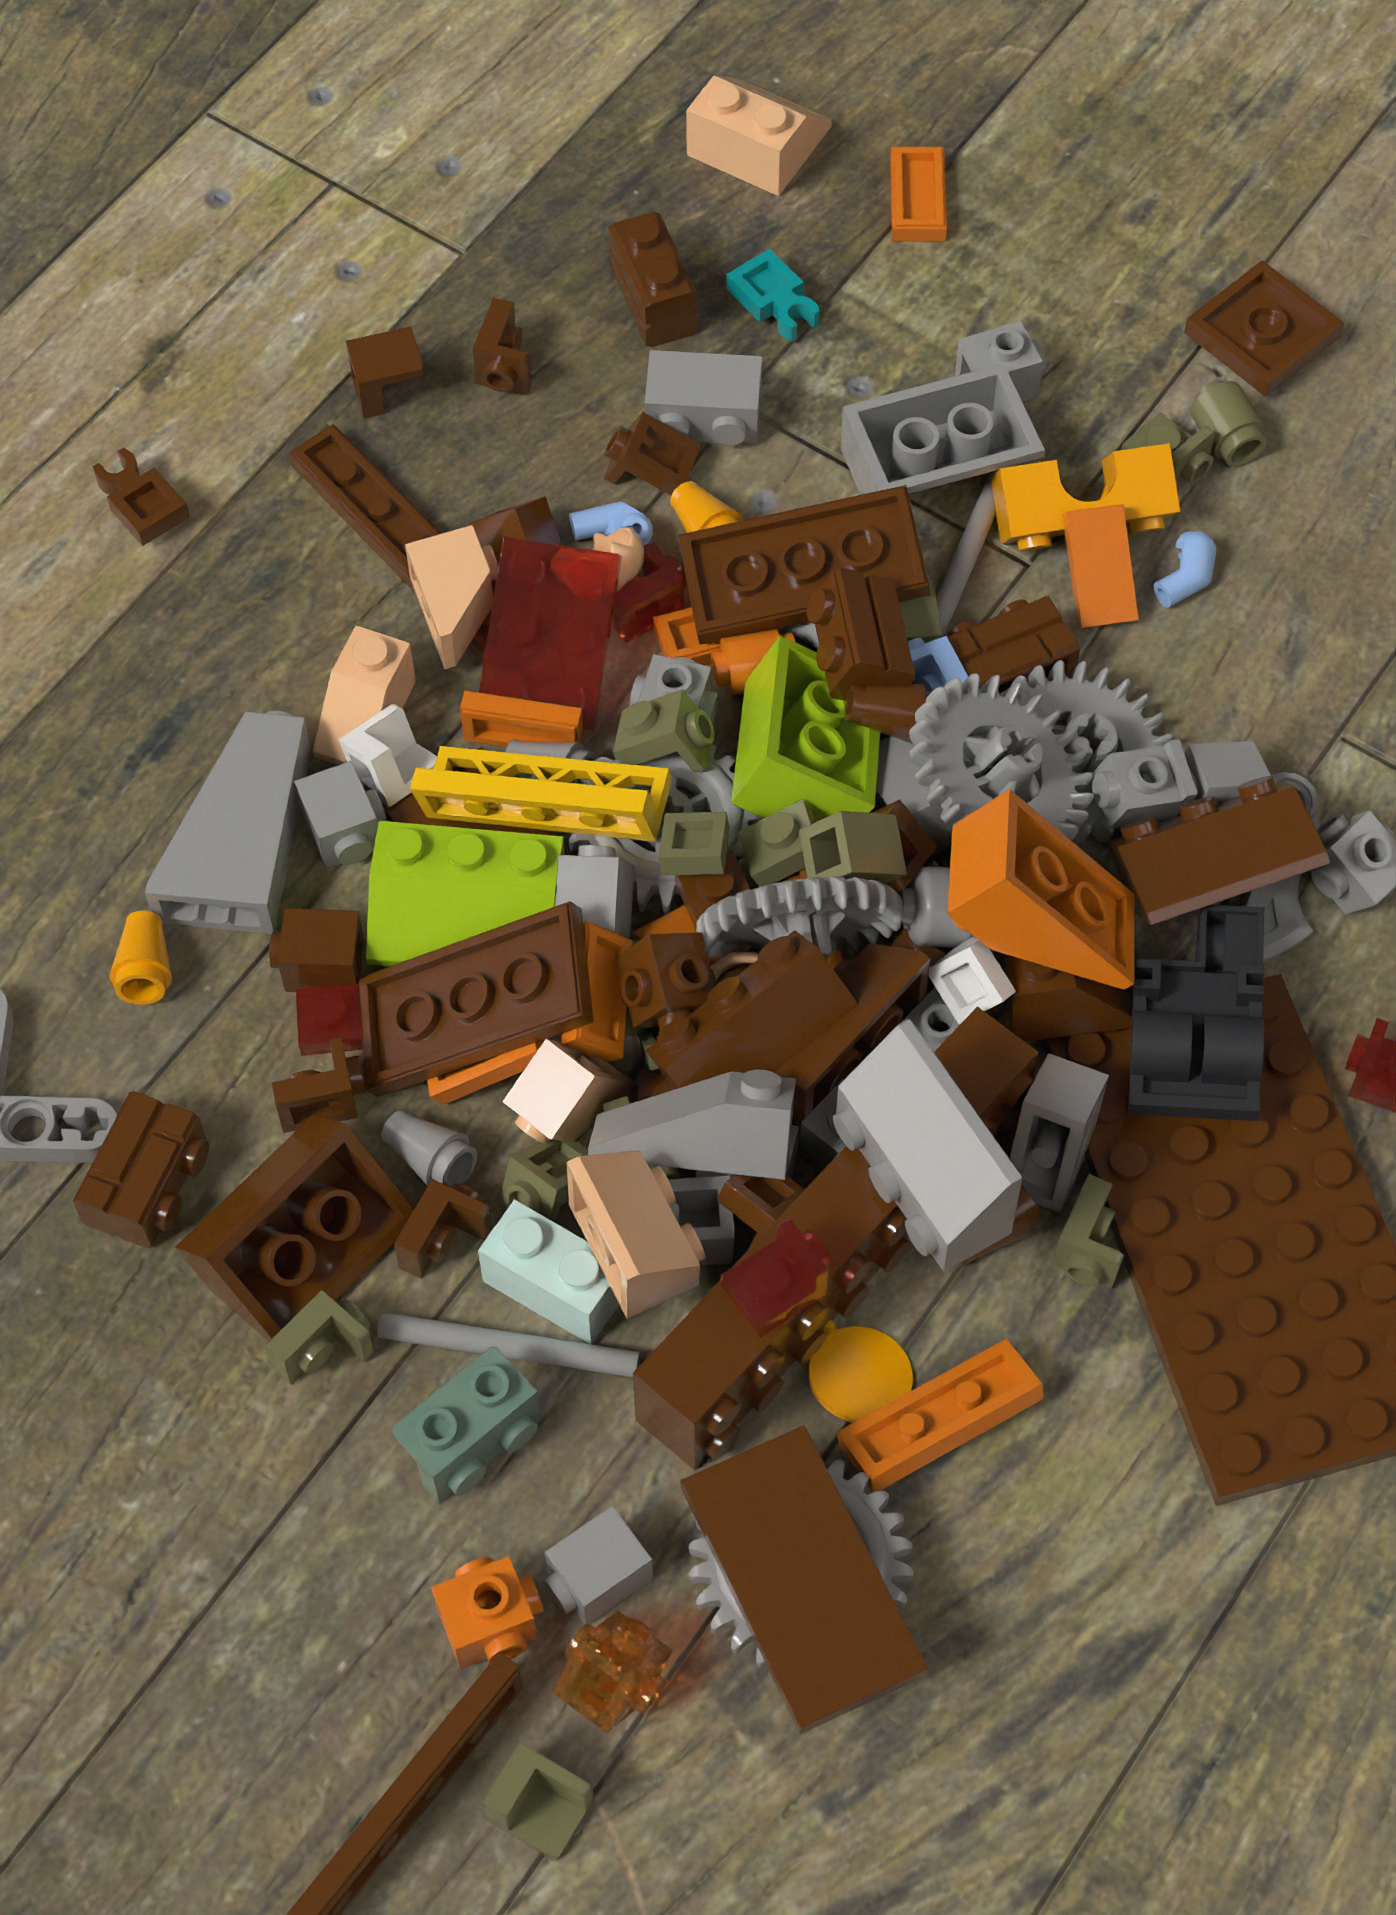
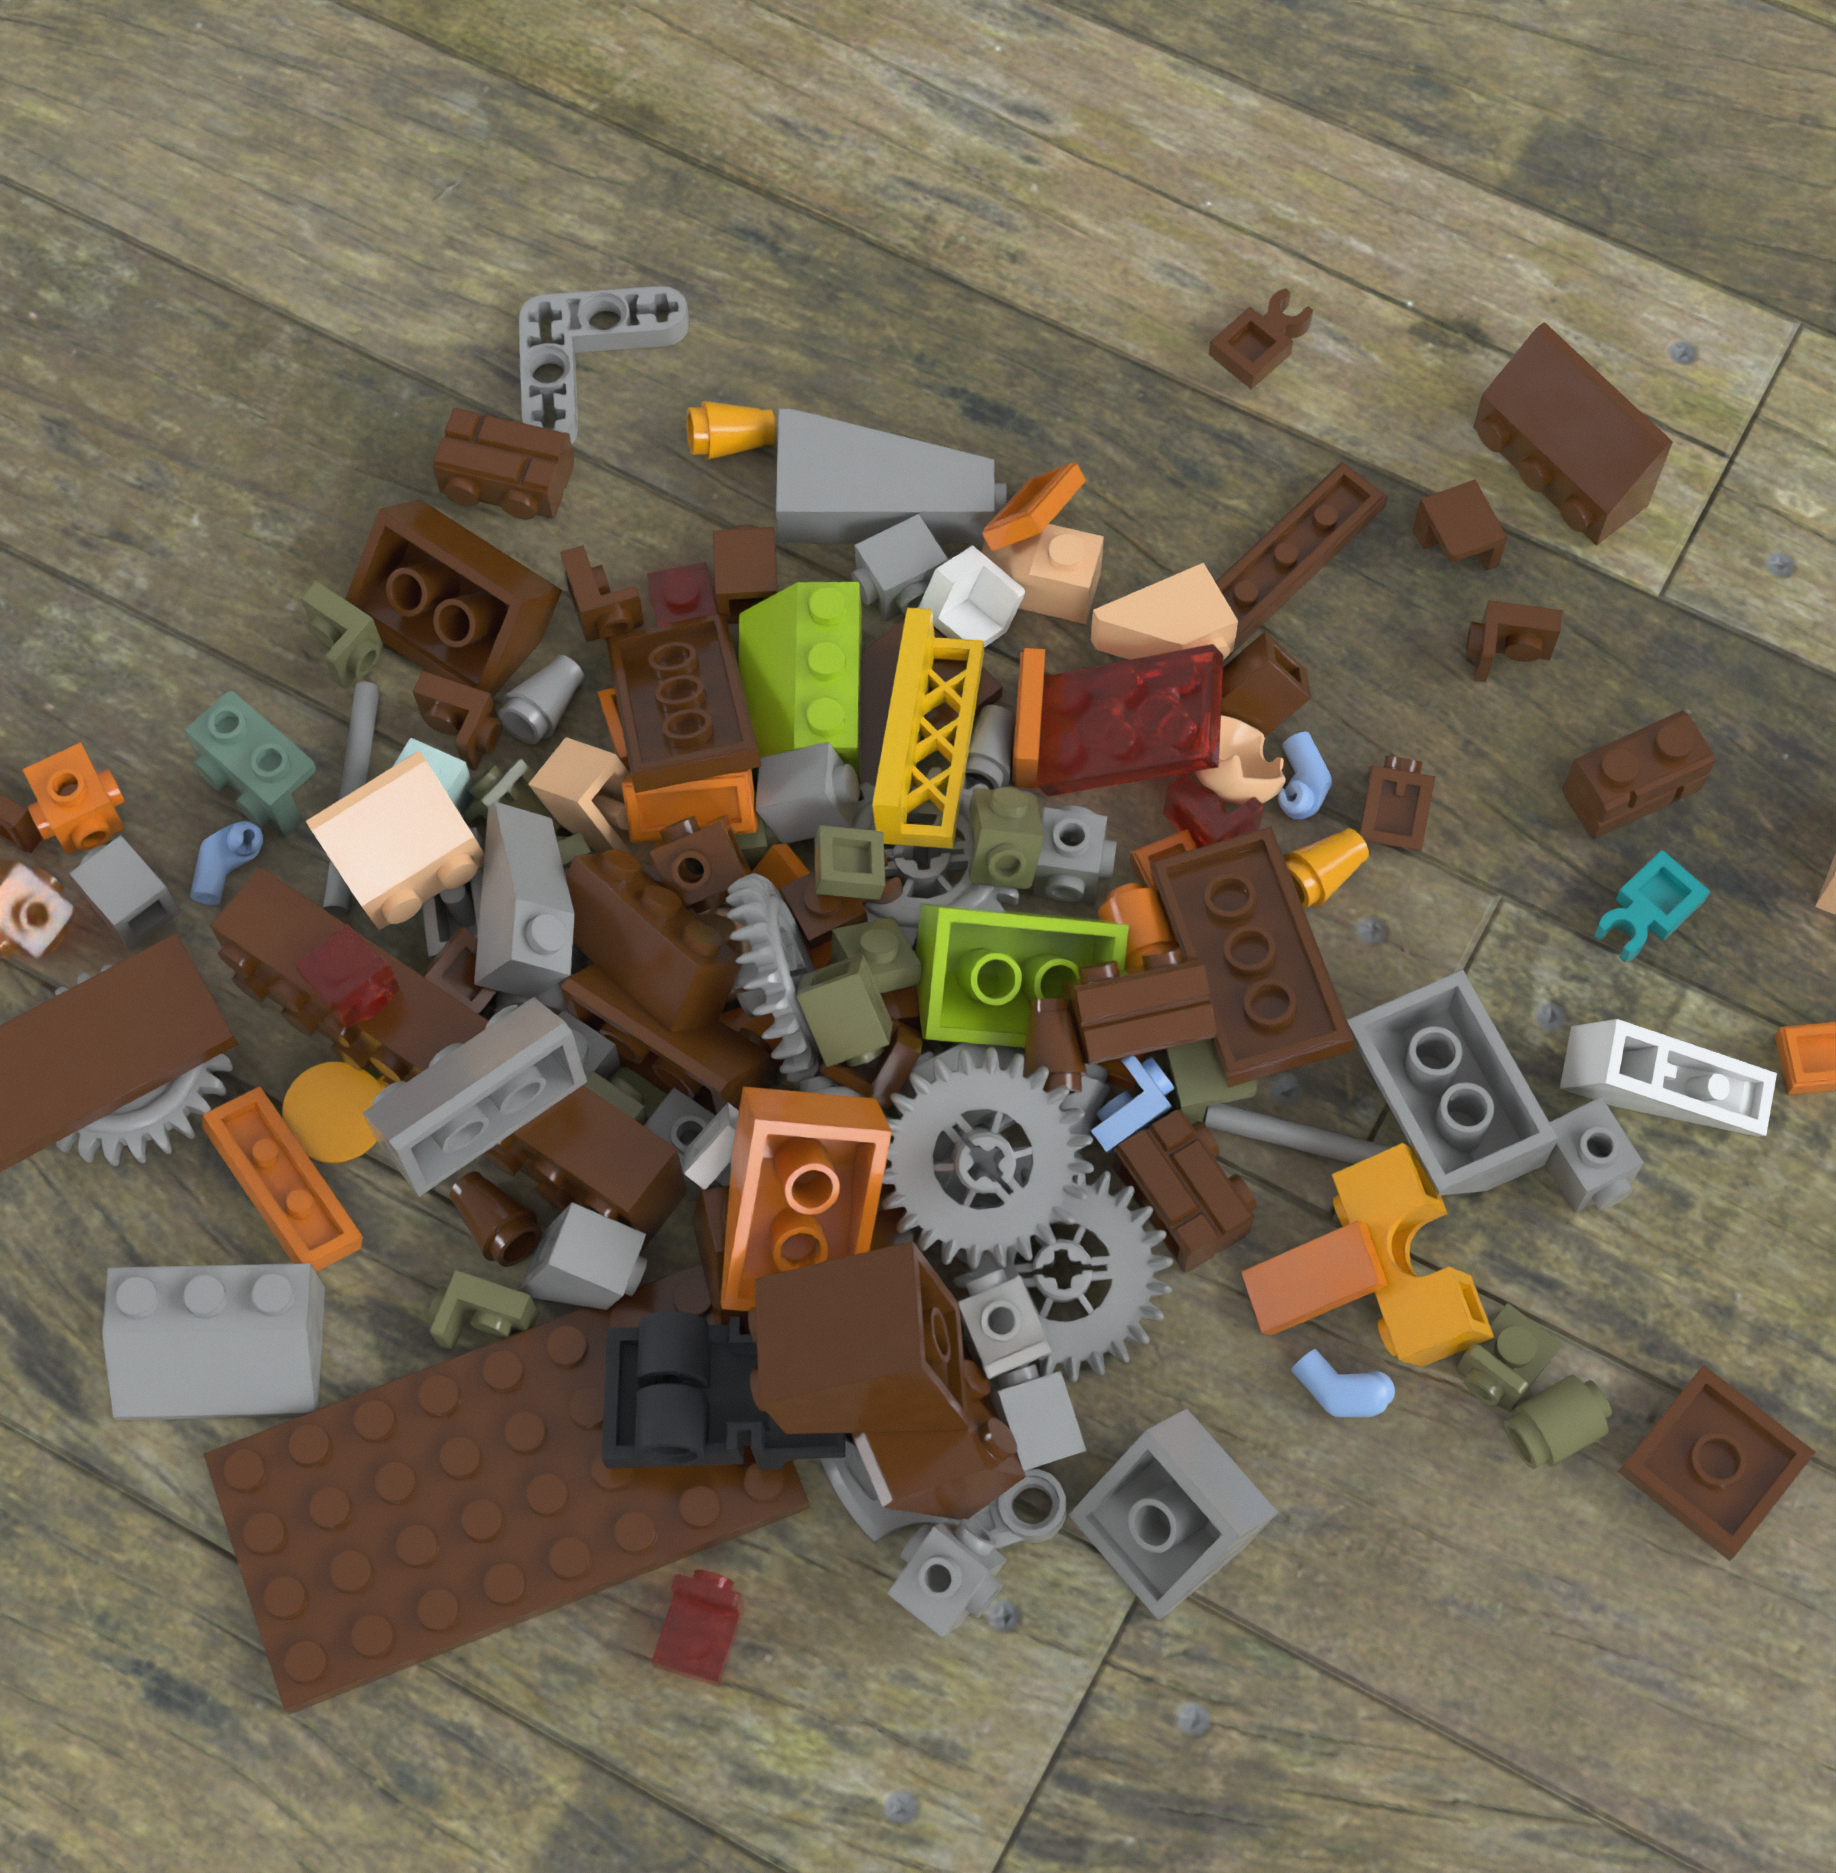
camera: 85 degrees right, 5 degrees up
(303, 686) = (1033, 506): none -> orange tile
(311, 266) = (1572, 435): none -> reddish brown slope
(559, 1473) = (222, 855): none -> light blue arm
(706, 395) = (1482, 845): light grey brick -> none
(933, 309) = (1666, 1077): none -> white slope
(1106, 1482) = (213, 1341): none -> light grey slope
(1191, 857) = (859, 1346): none -> reddish brown slope
(1300, 695) = (1172, 1512): none -> light grey slope

